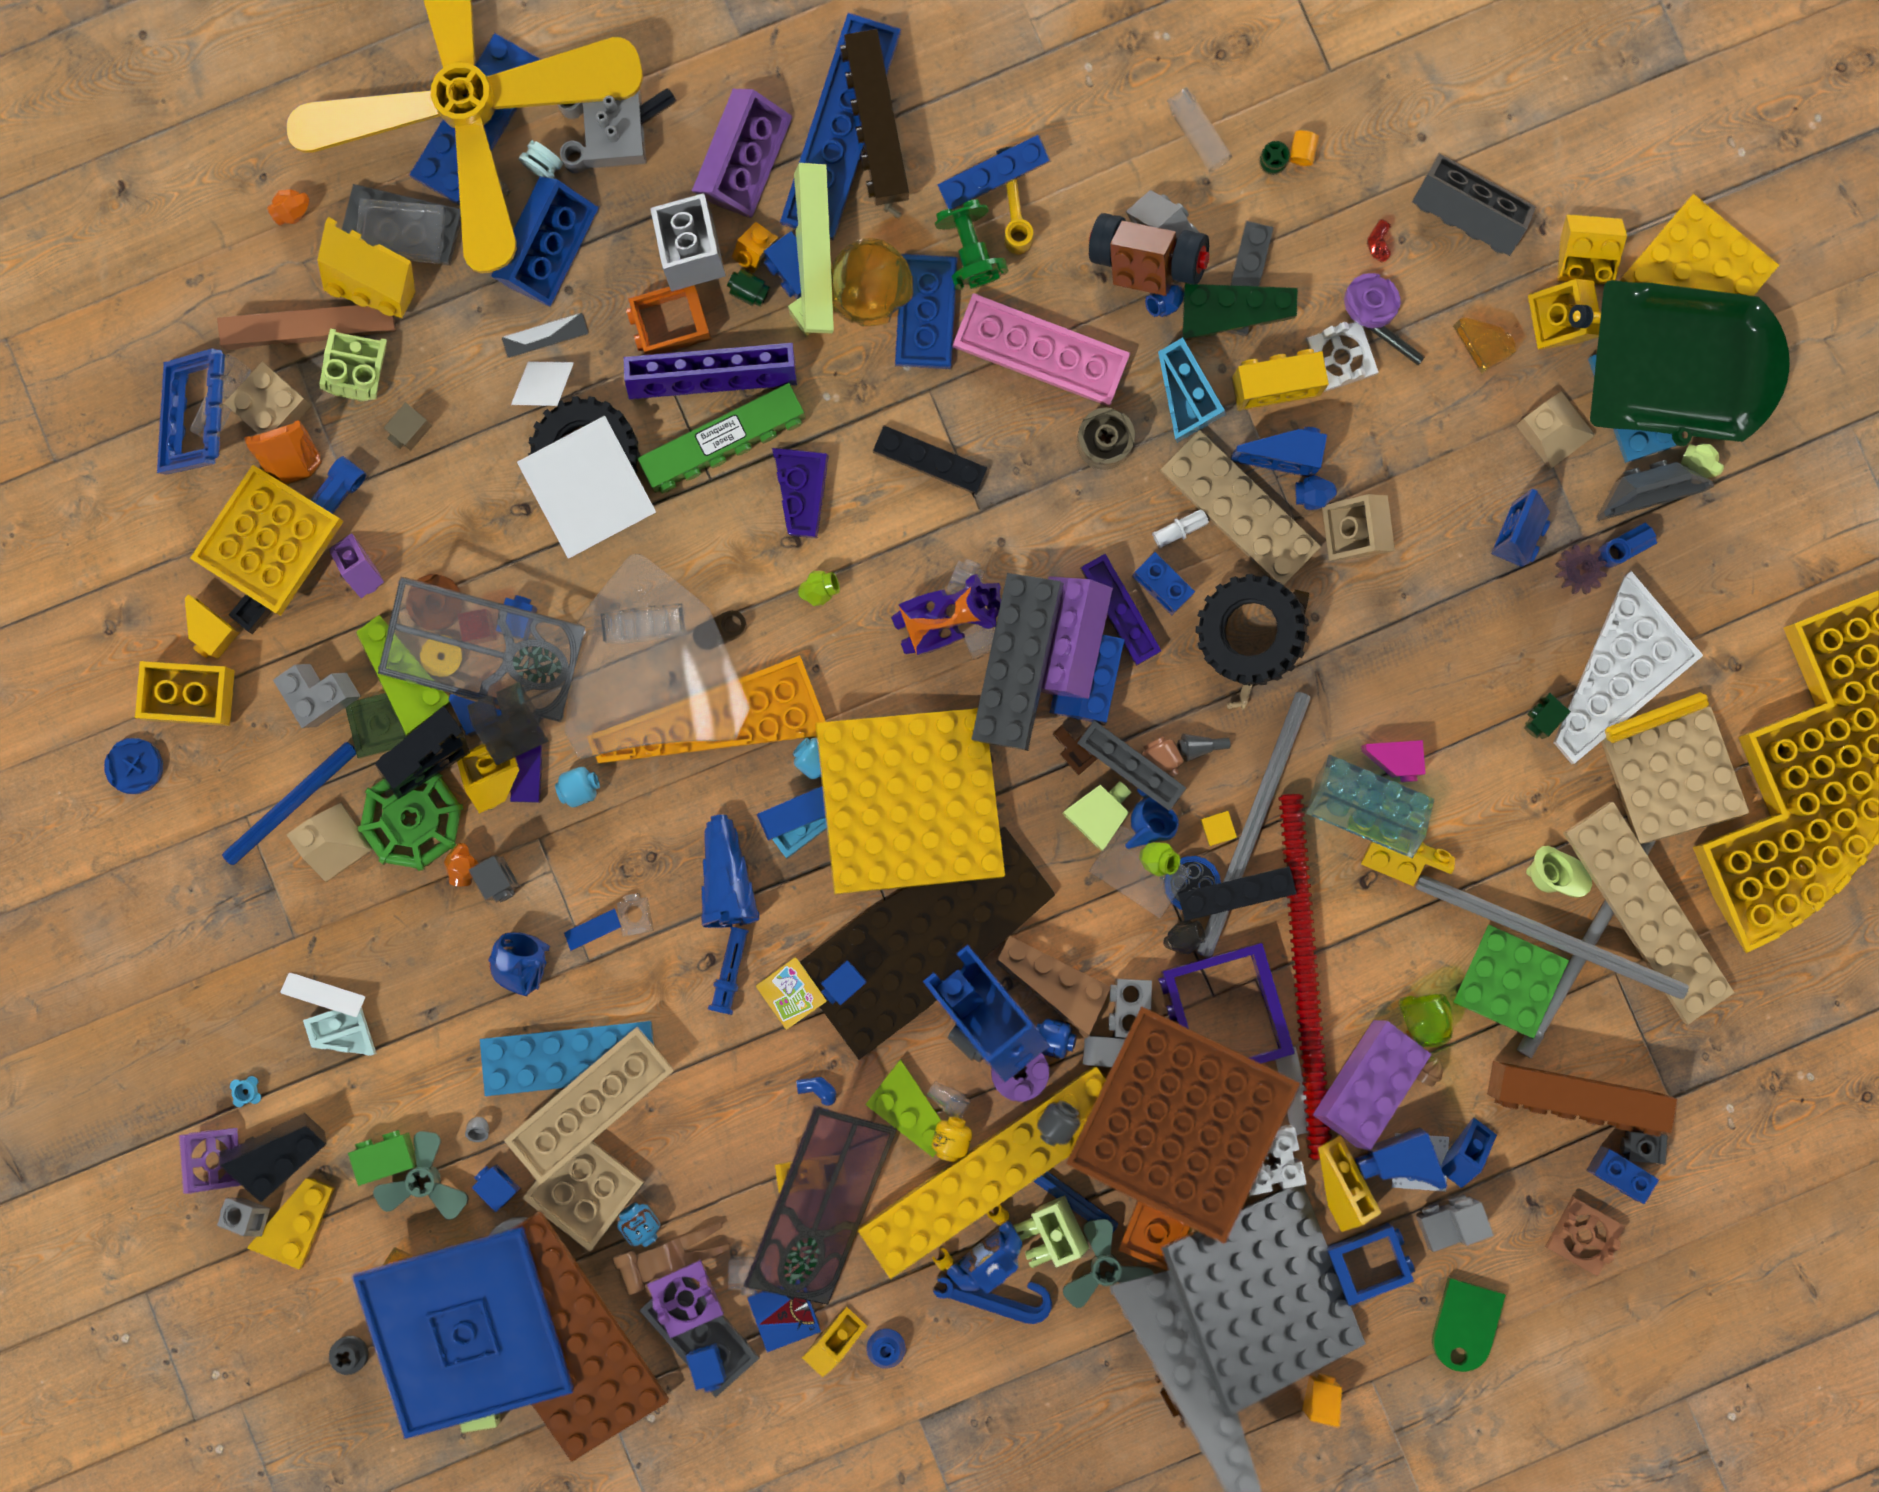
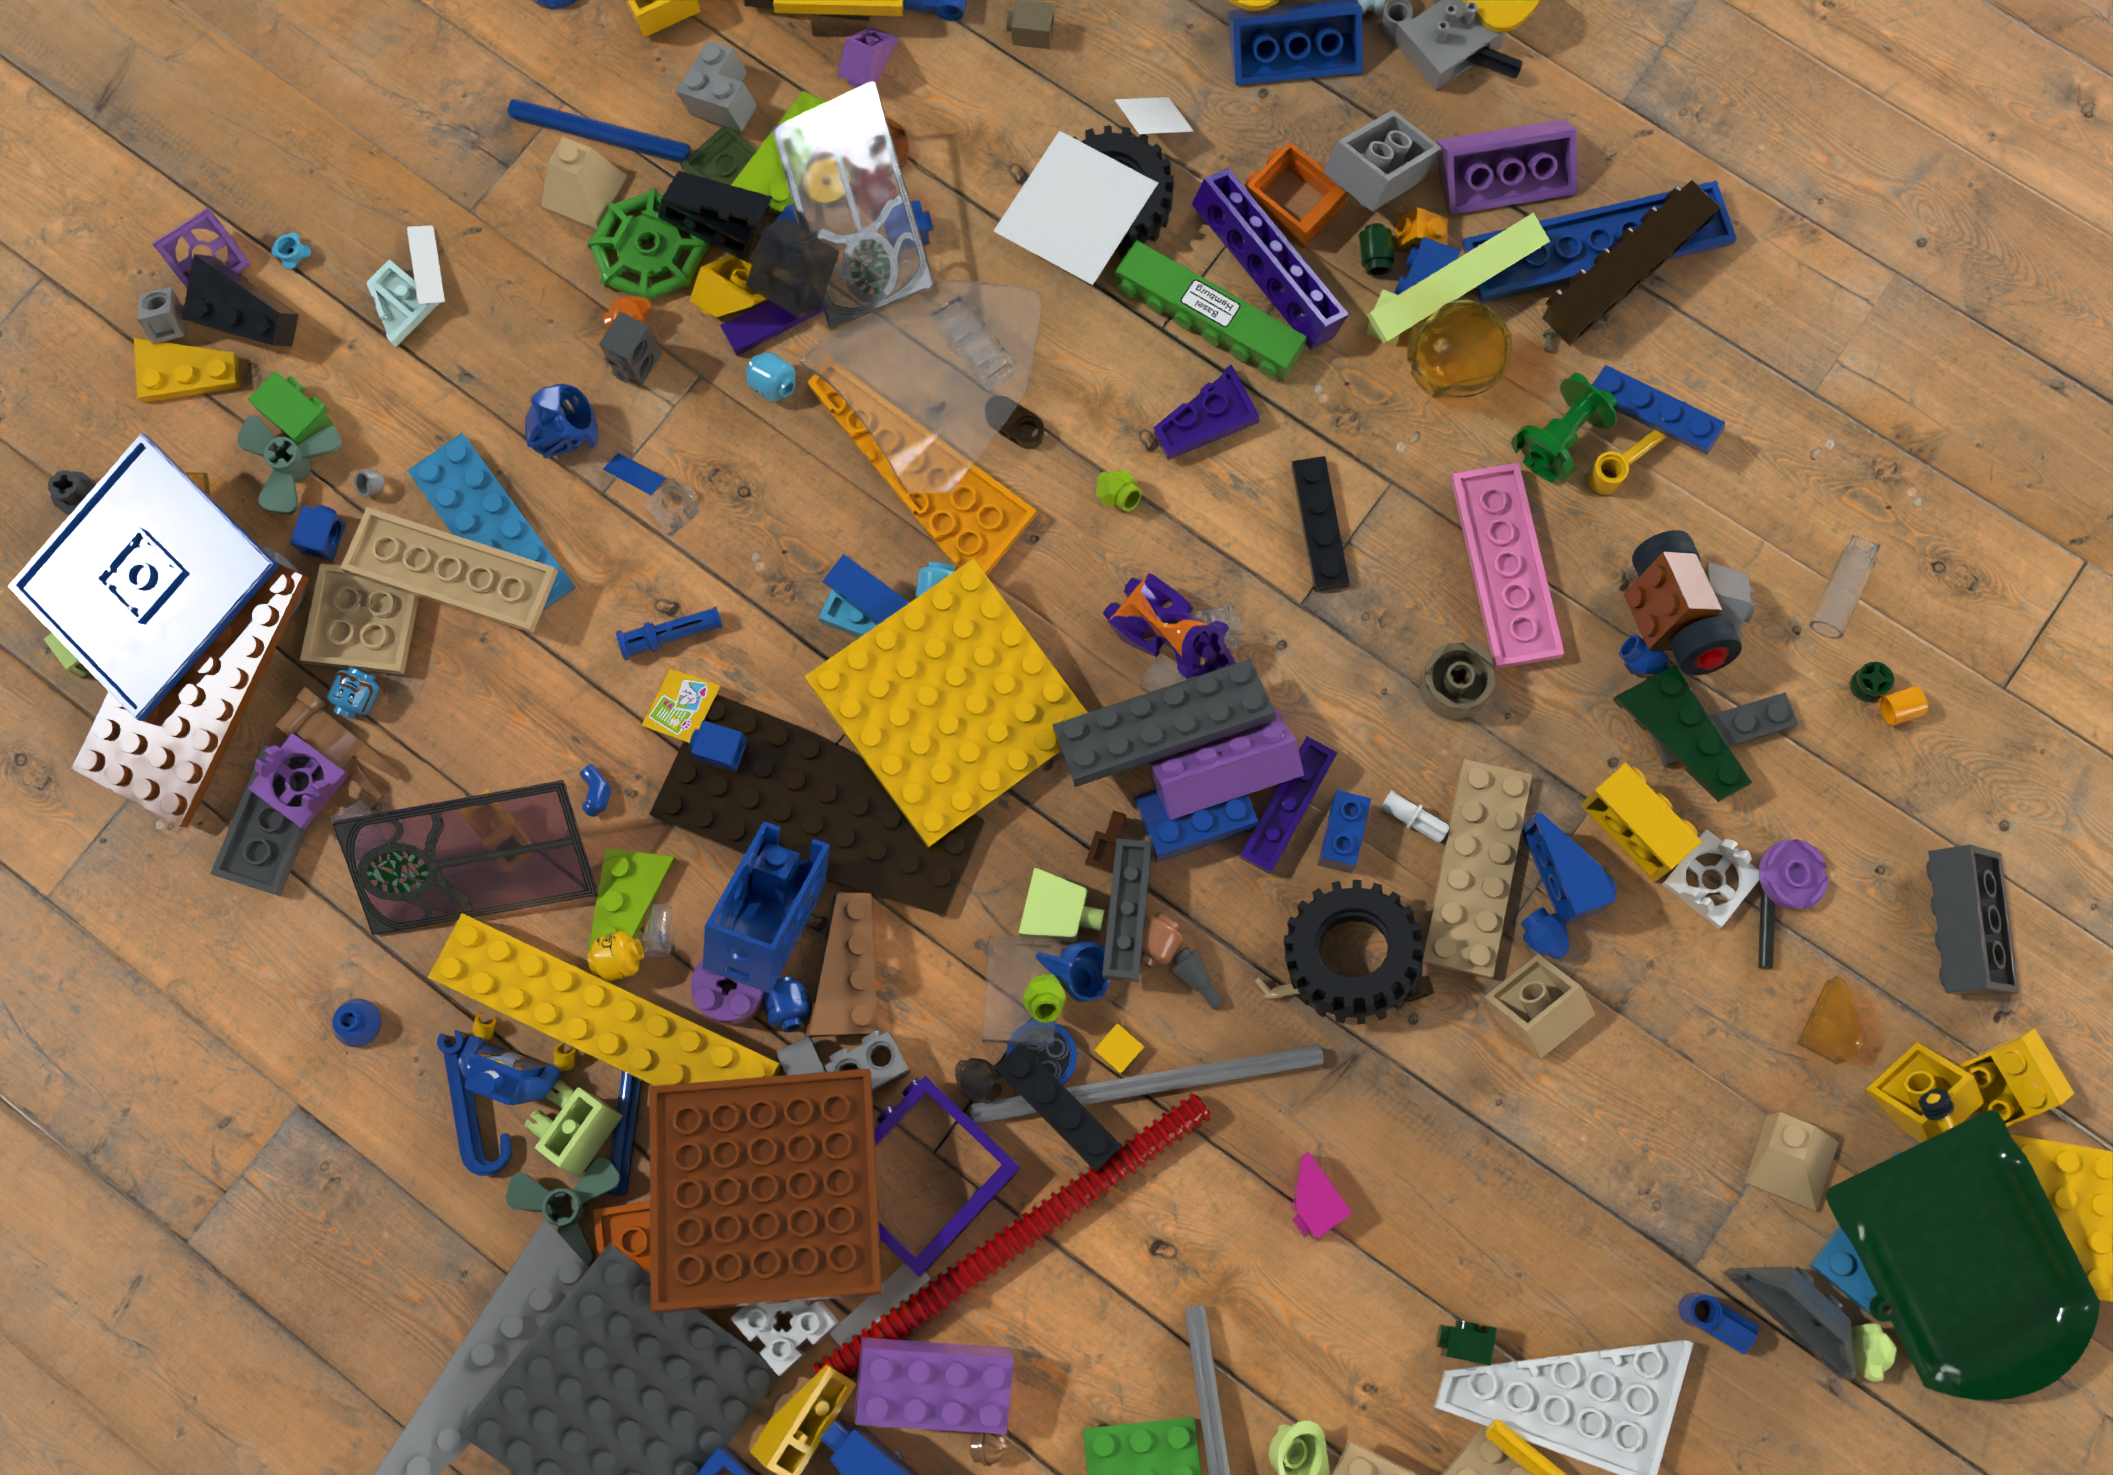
camera: 65 degrees right, 10 degrees down
(544, 335) = (1204, 97): dark grey sticker -> none
(706, 1367) = (234, 842): blue brick -> none
(726, 889) = (751, 576): blue cone -> none
(783, 1319) = (330, 898): blue tile -> none
(834, 1342) = (334, 962): yellow slope -> none
(928, 319) = (1466, 432): blue tile -> none
(1058, 1123) = (690, 1053): dark grey head -> none
(1188, 391) = (1564, 735): medium azure wedge -> none
(1370, 806) = (1242, 1197): clear light blue brick -> none
(1376, 241) = (1859, 842): clear red arm -> none
(1403, 867) = (1210, 1263): yellow bracket -> none
(1428, 1019) = (1045, 1409): clear neon green piece -> none
(1522, 529) = (1658, 1188): blue slope -> none
(1589, 564) = (1667, 1293): gear -> none

